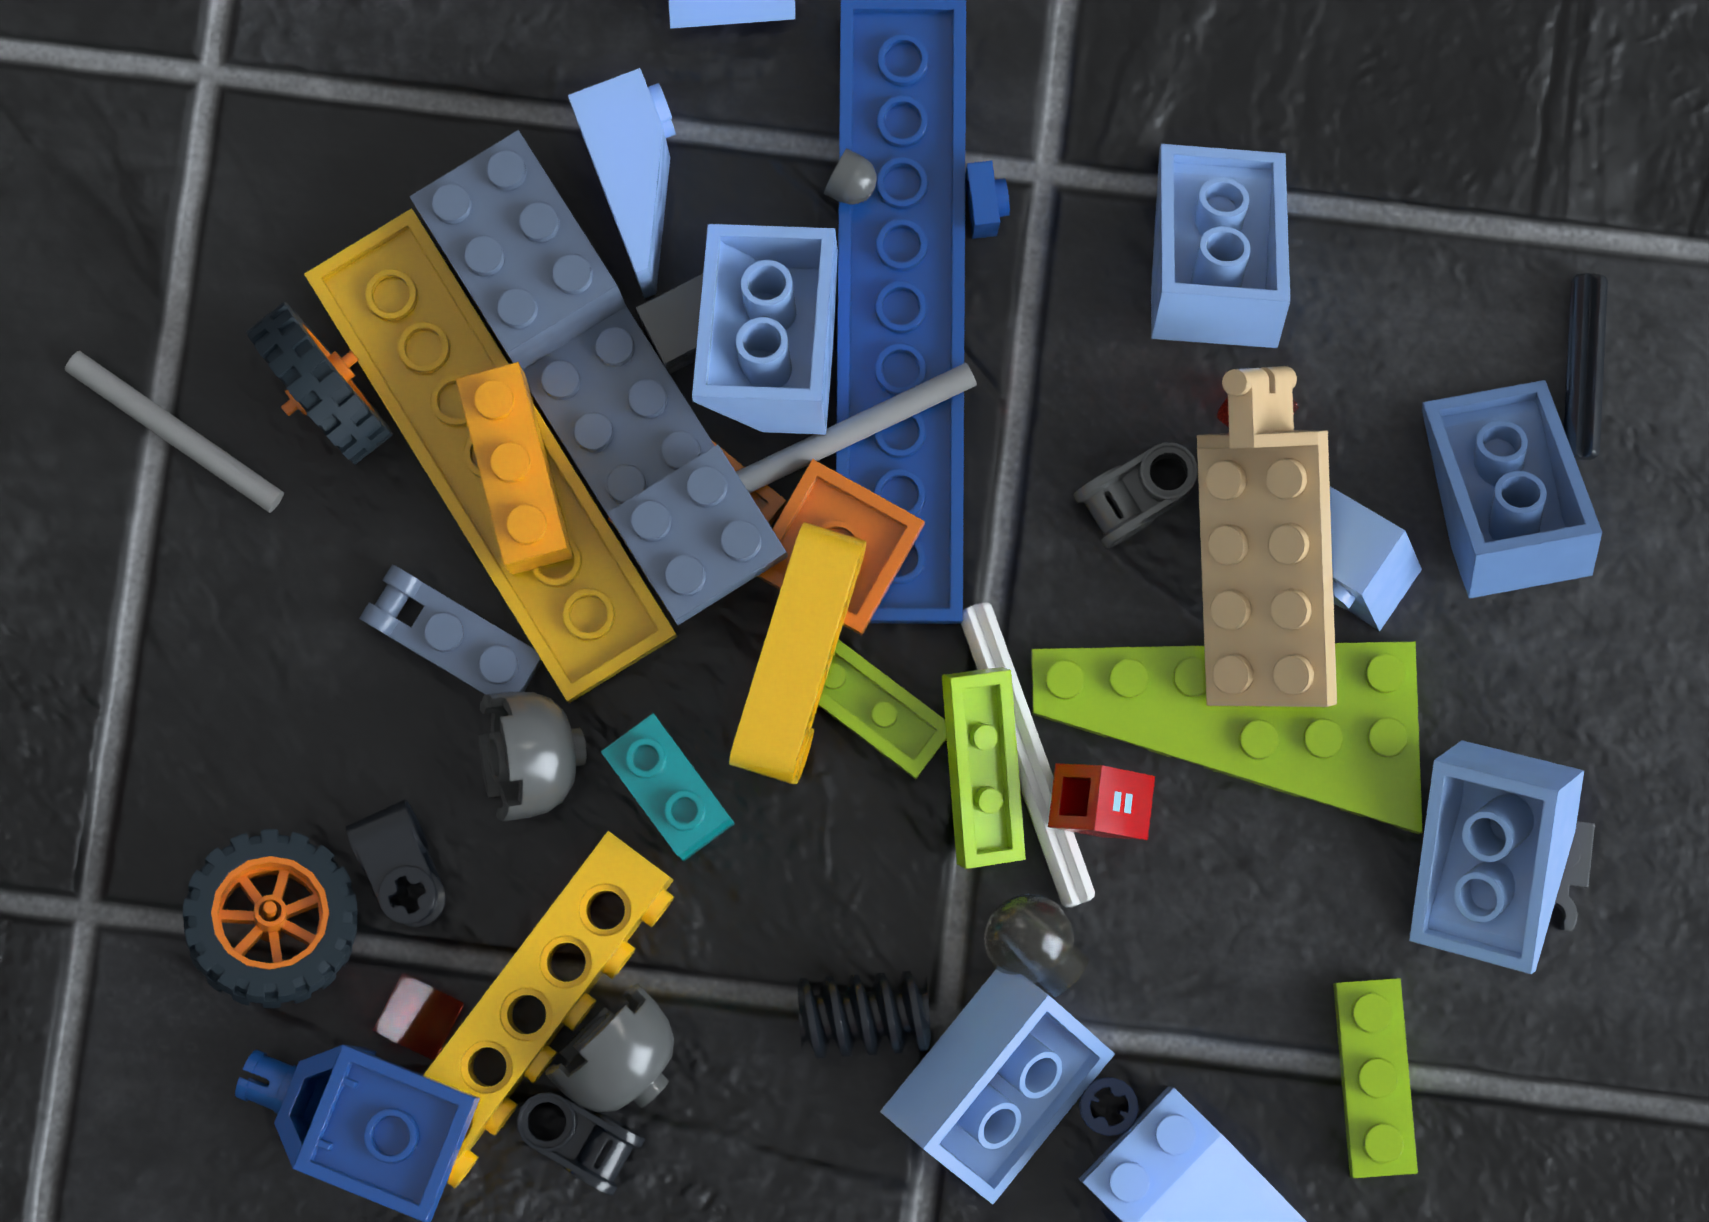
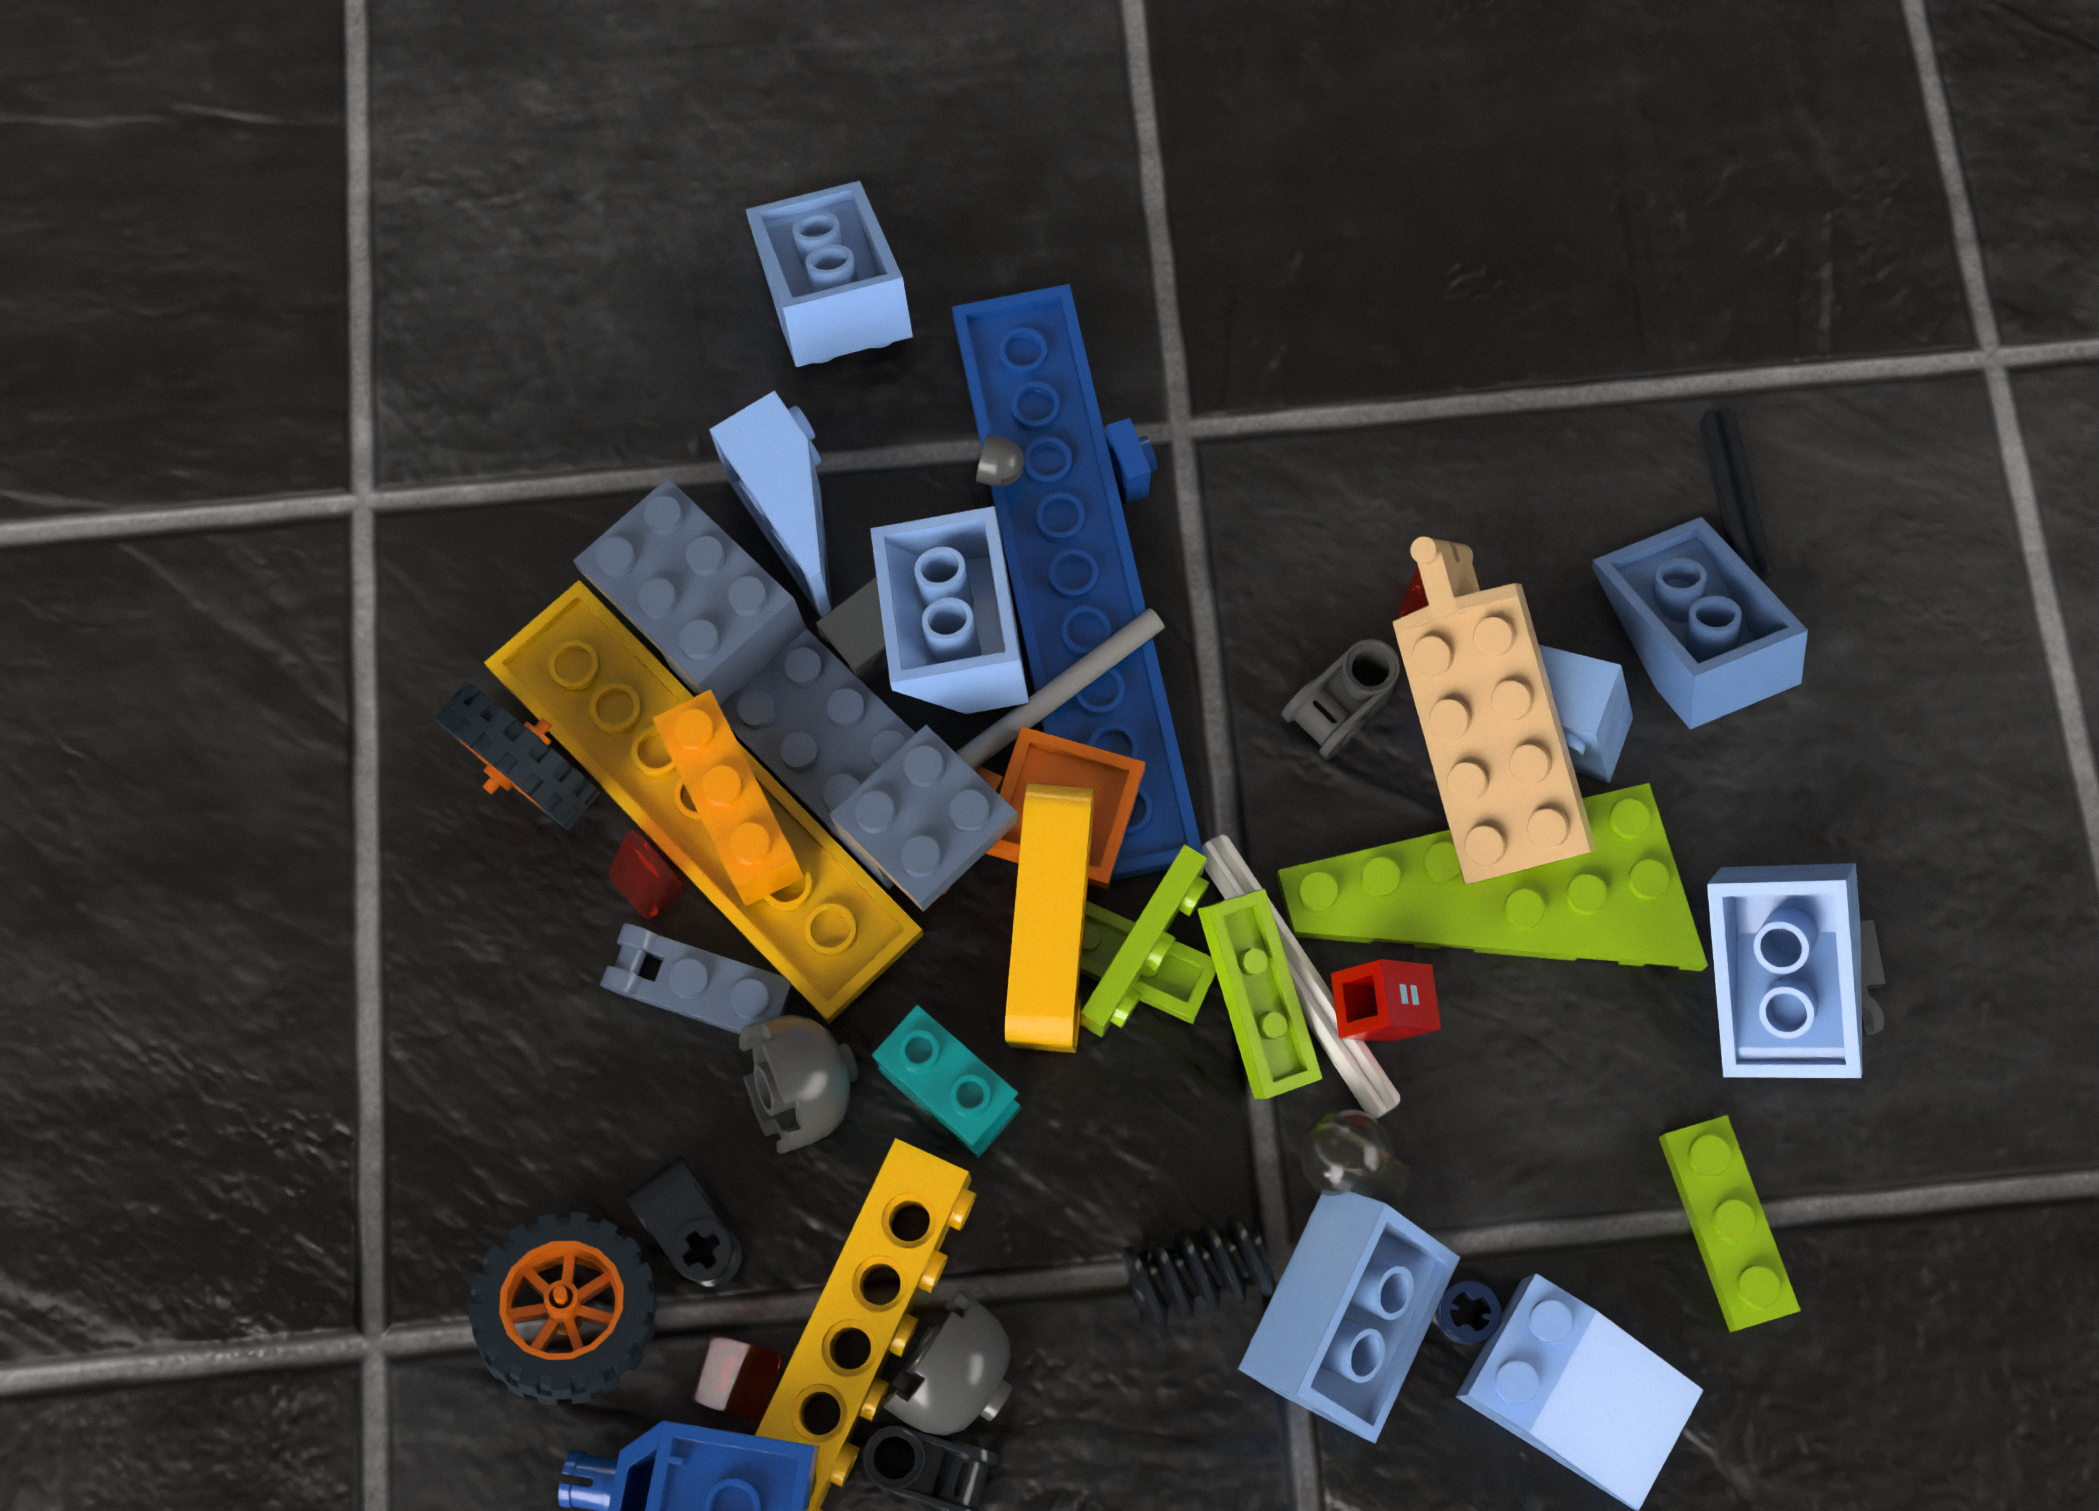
camera: 15 degrees left, 10 degrees down
(174, 431) = (382, 843): light grey bar -> none
(420, 521) = (644, 876): none -> clear red slope
(885, 698) = (1146, 943): none -> lime plate
(1220, 247) = (1365, 459): light blue slope -> none

